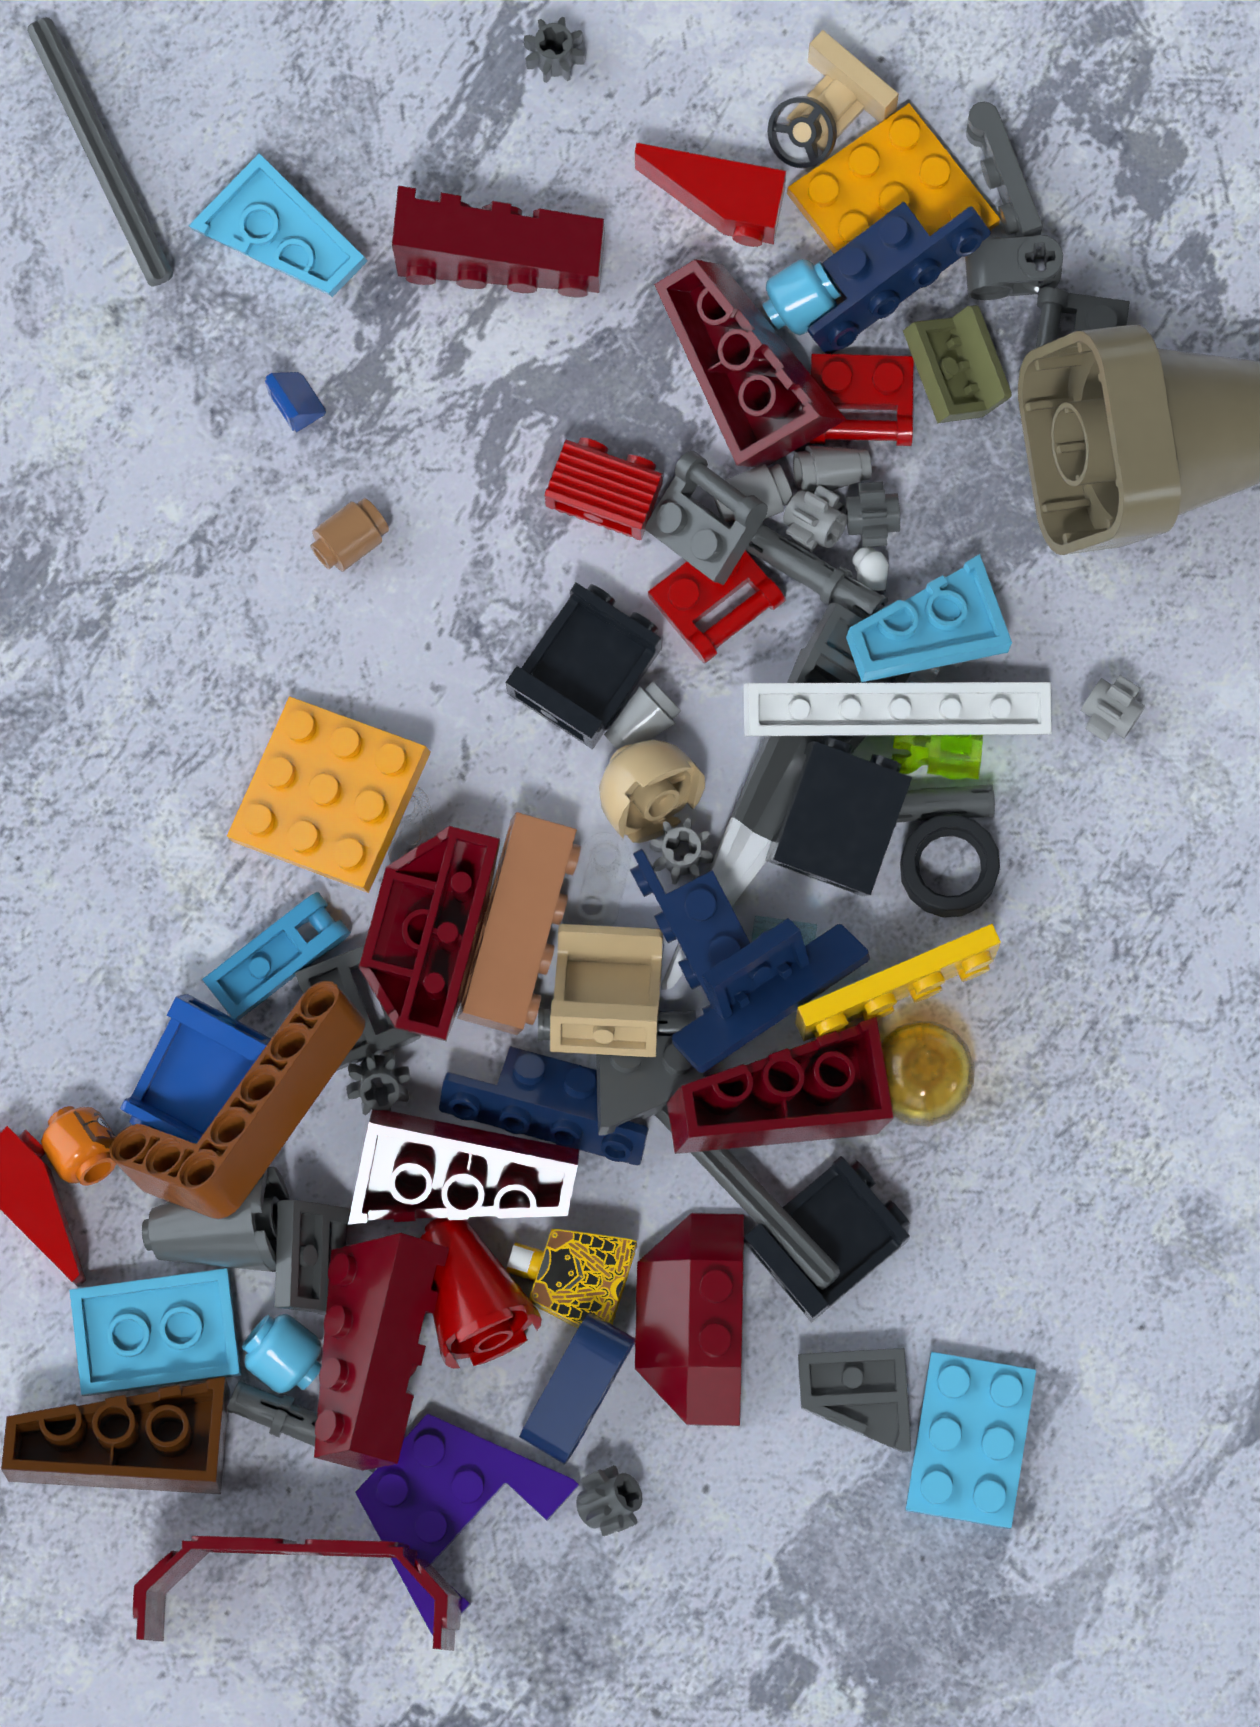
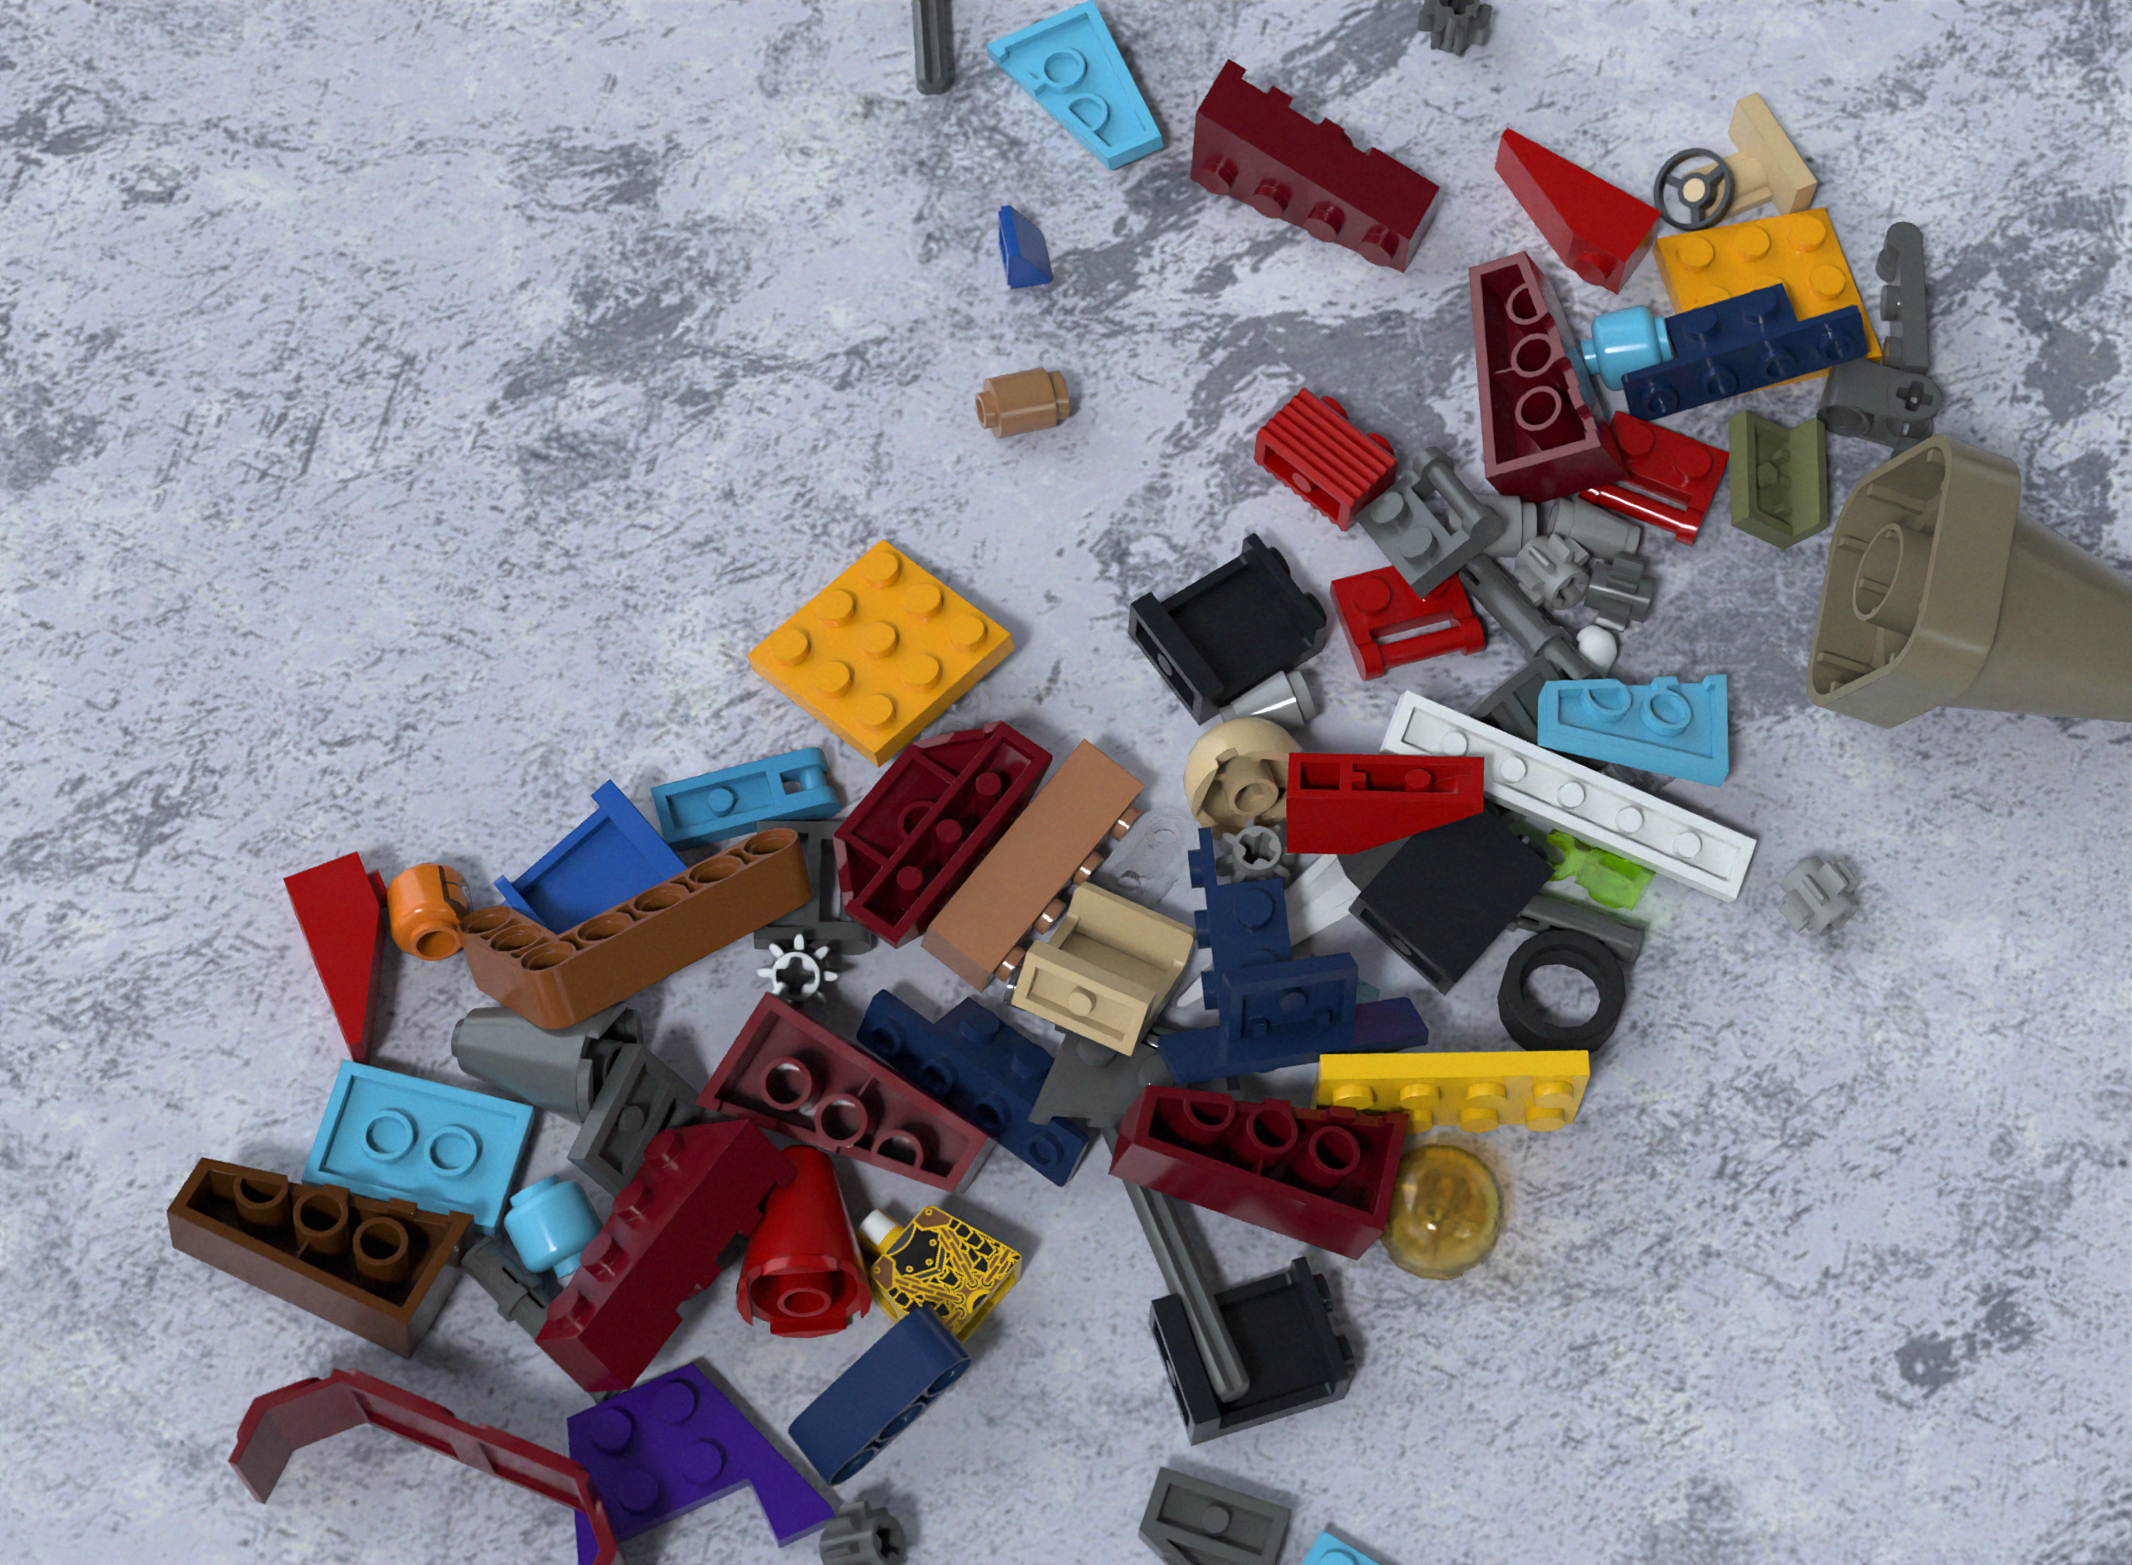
camera: 15 degrees right, 15 degrees down
(693, 1318) = (1051, 1384): dark red wedge -> none
(759, 776) = (1372, 799): none -> red slope

